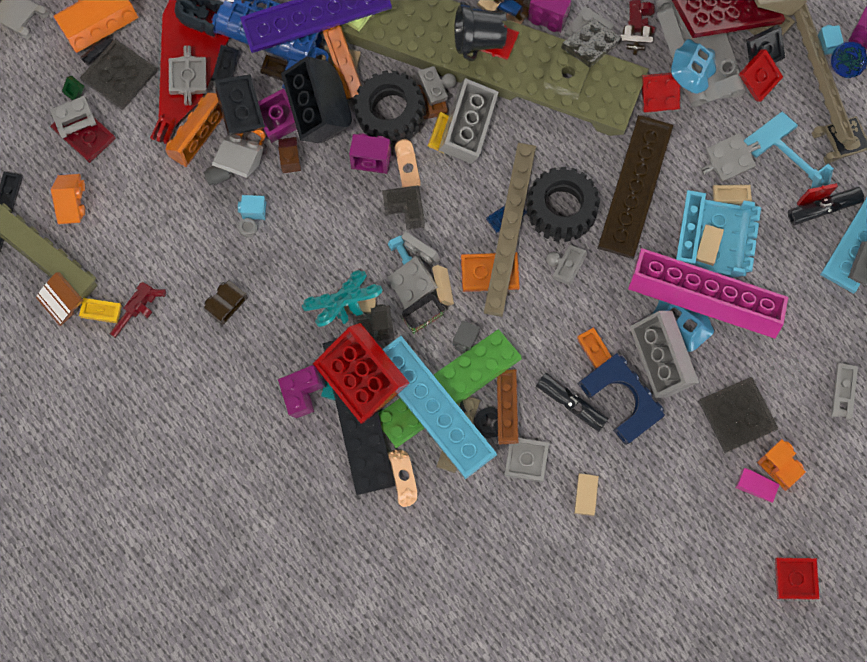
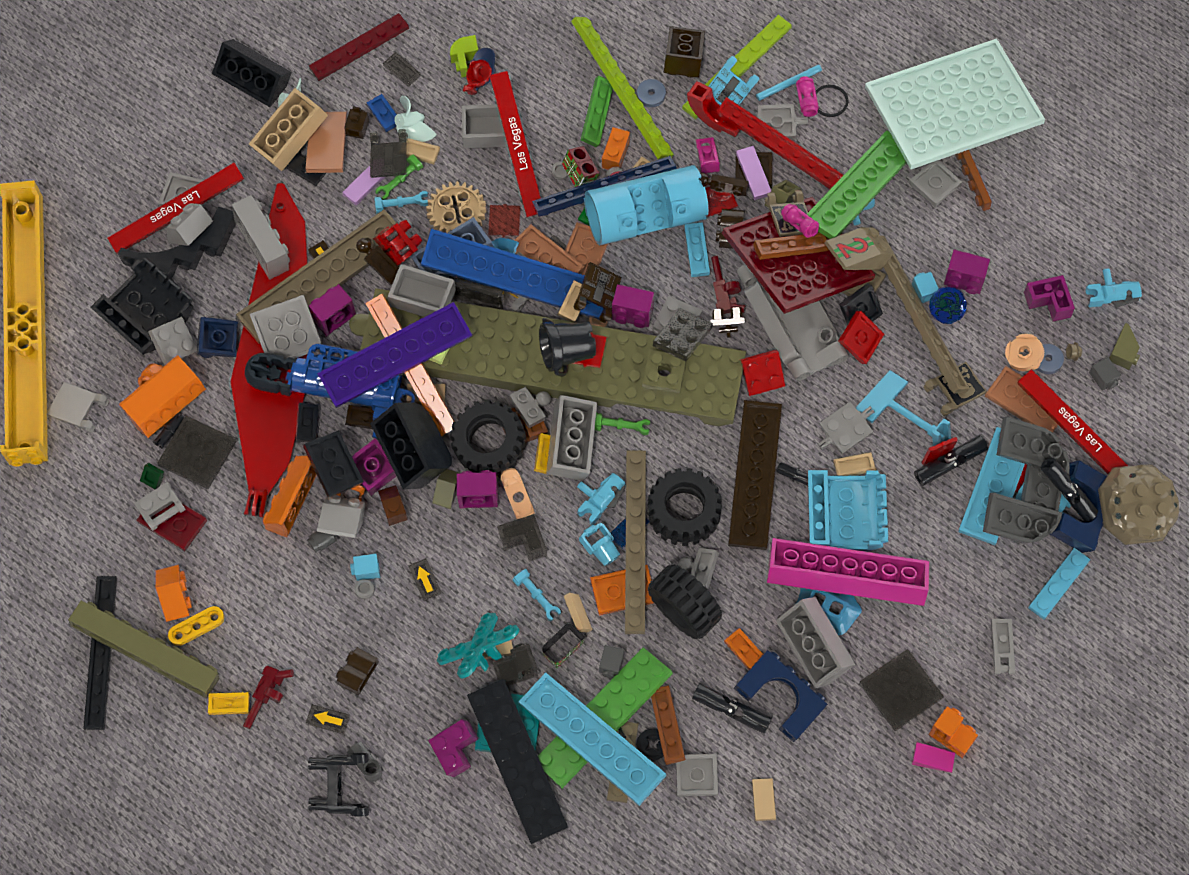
camera: 10 degrees left, 5 degrees down
(59, 298) = (184, 699): dark orange slope -> none
(76, 233) = (186, 627): none -> yellow plate
(184, 388) = (333, 802): none -> black connector
(187, 75) = (270, 441): light grey plate -> none
(189, 342) = (328, 719): none -> clear smoke tile
(215, 388) = (360, 748): none -> dark grey piece
(305, 229) = (424, 579): none -> clear smoke tile
(340, 148) = (446, 489): none -> olive slope
(360, 372) = (512, 717): red slope -> none
(406, 489) = (580, 828): light nougat piece -> none
(412, 282) = (546, 615): light grey plate -> none
(414, 245) = (554, 582): light grey plate -> none
(479, 229) = (604, 548): none -> medium azure piece
(484, 183) = (604, 497): none -> medium azure piece
(516, 116) = (620, 423): none -> bright green piece
(546, 292) = (684, 601): none -> black tyre
(671, 191) = (793, 473): none -> black axle
(683, 72) = (779, 337): dark azure piece -> none
(709, 245) = (840, 522): tan tile -> none
(797, 578) = (989, 844): red plate -> none

